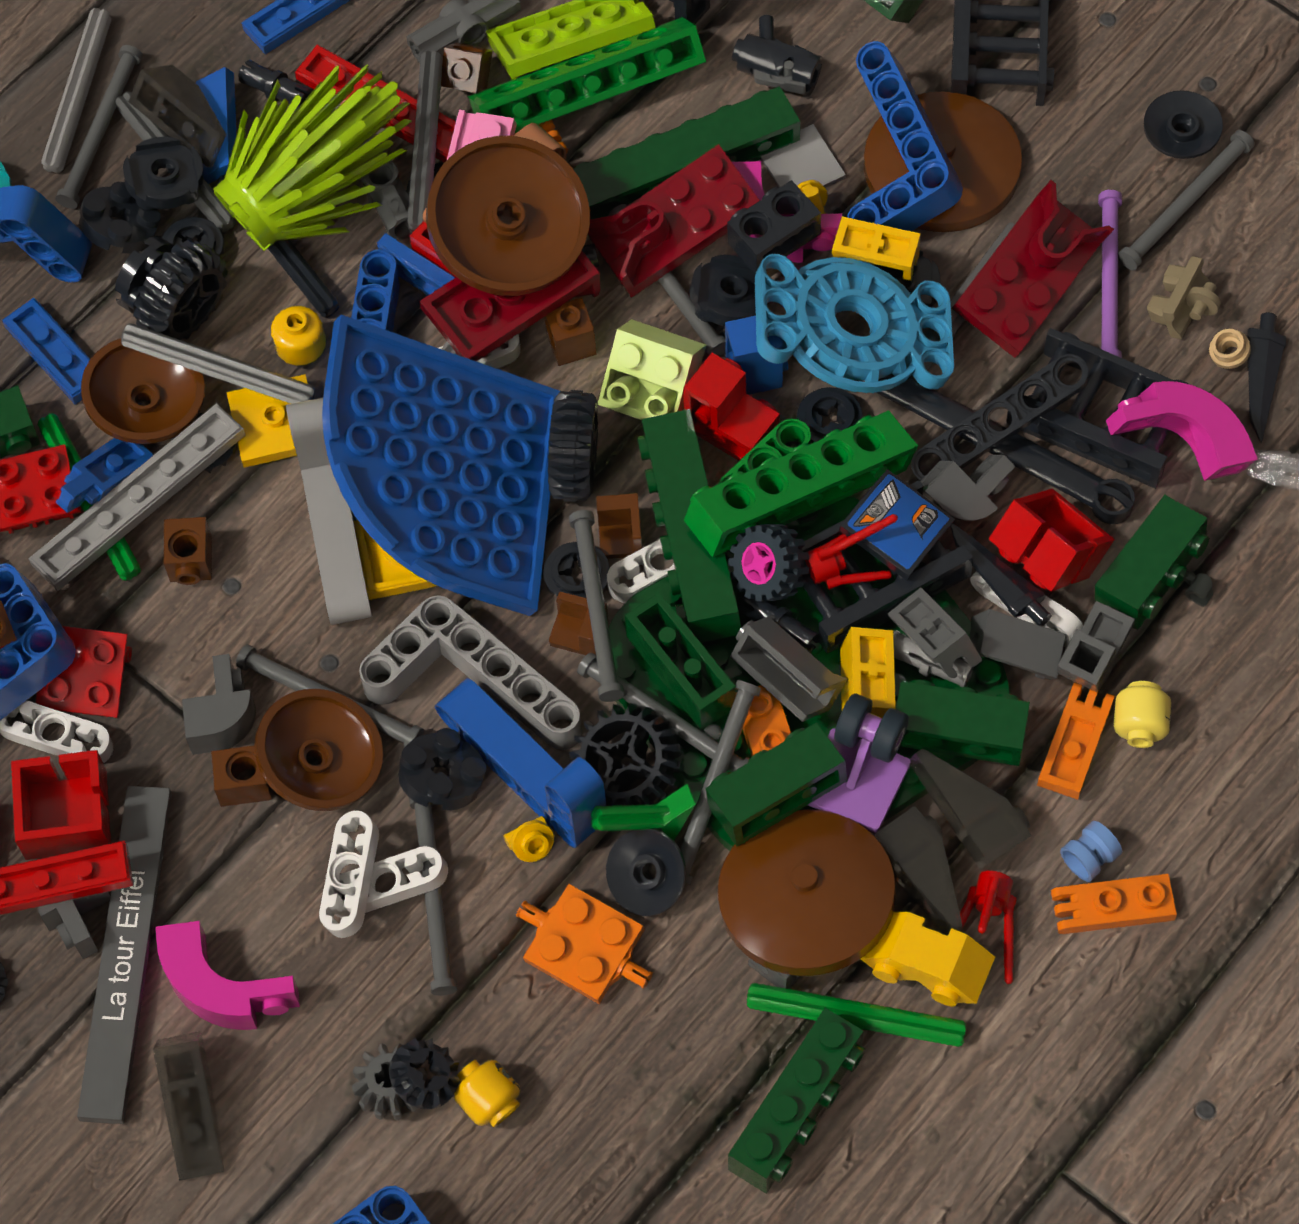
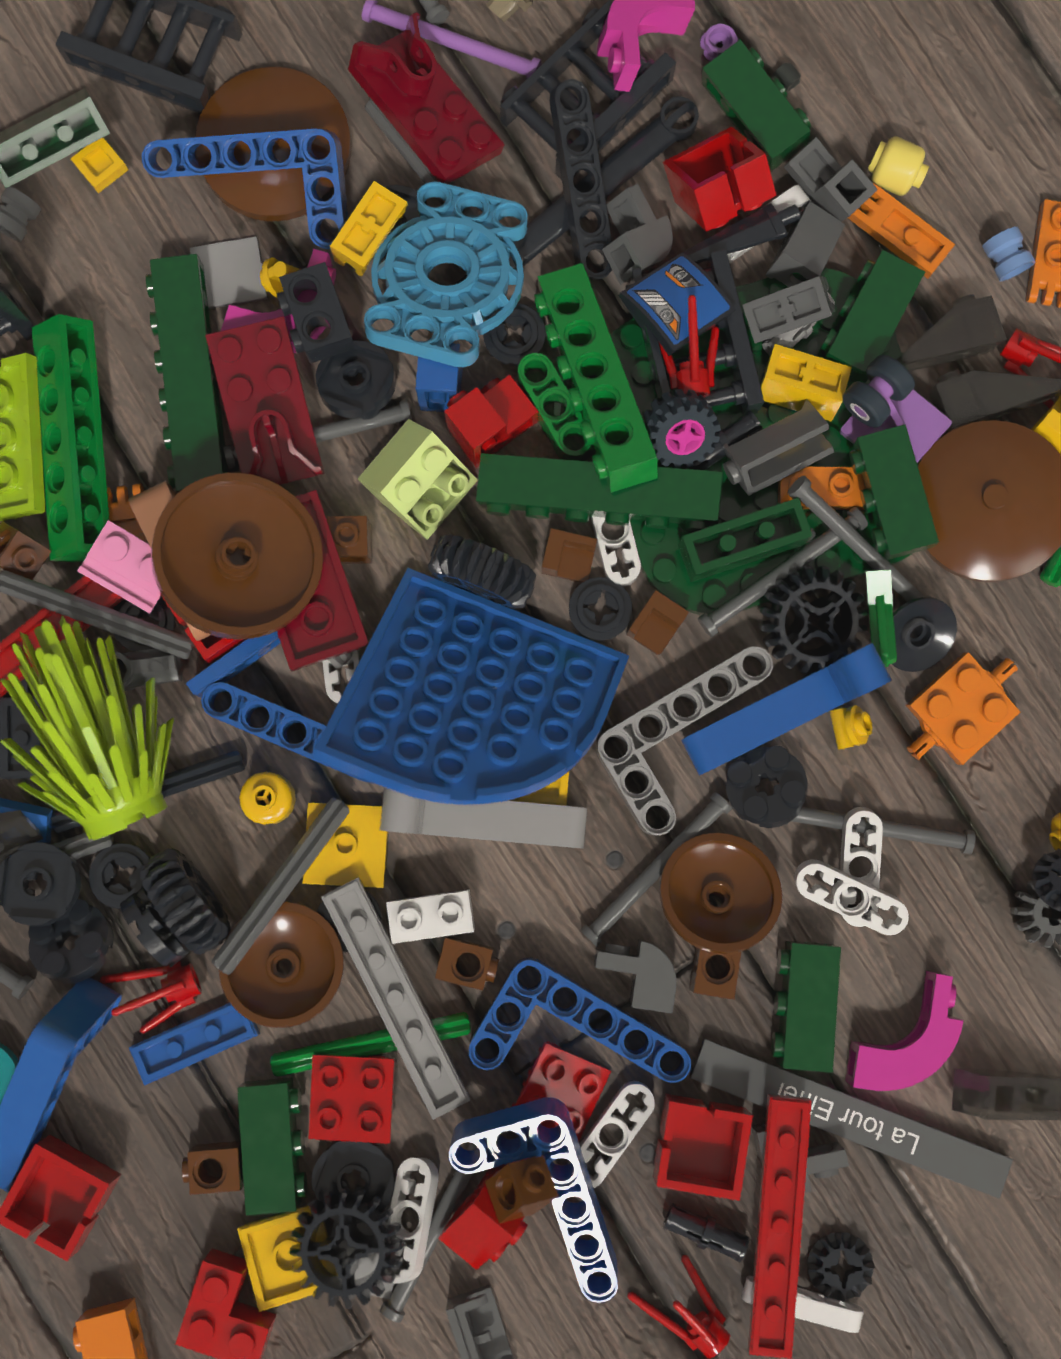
camera: 80 degrees left, 20 degrees up
(101, 472) = (362, 1026): blue hinge -> none
(102, 320) = (179, 985): none -> red plant
(161, 663) = (577, 1016): none -> blue beam
(225, 506) = (430, 916): none -> white brick
(228, 872) = (807, 1006): none -> dark green brick
(610, 688) = (659, 599): dark grey bar -> none
(776, 62) = (113, 258): black piece -> none
(862, 25) = (99, 164): none -> yellow plate
(1216, 508) = (717, 33): none -> medium lavender plate

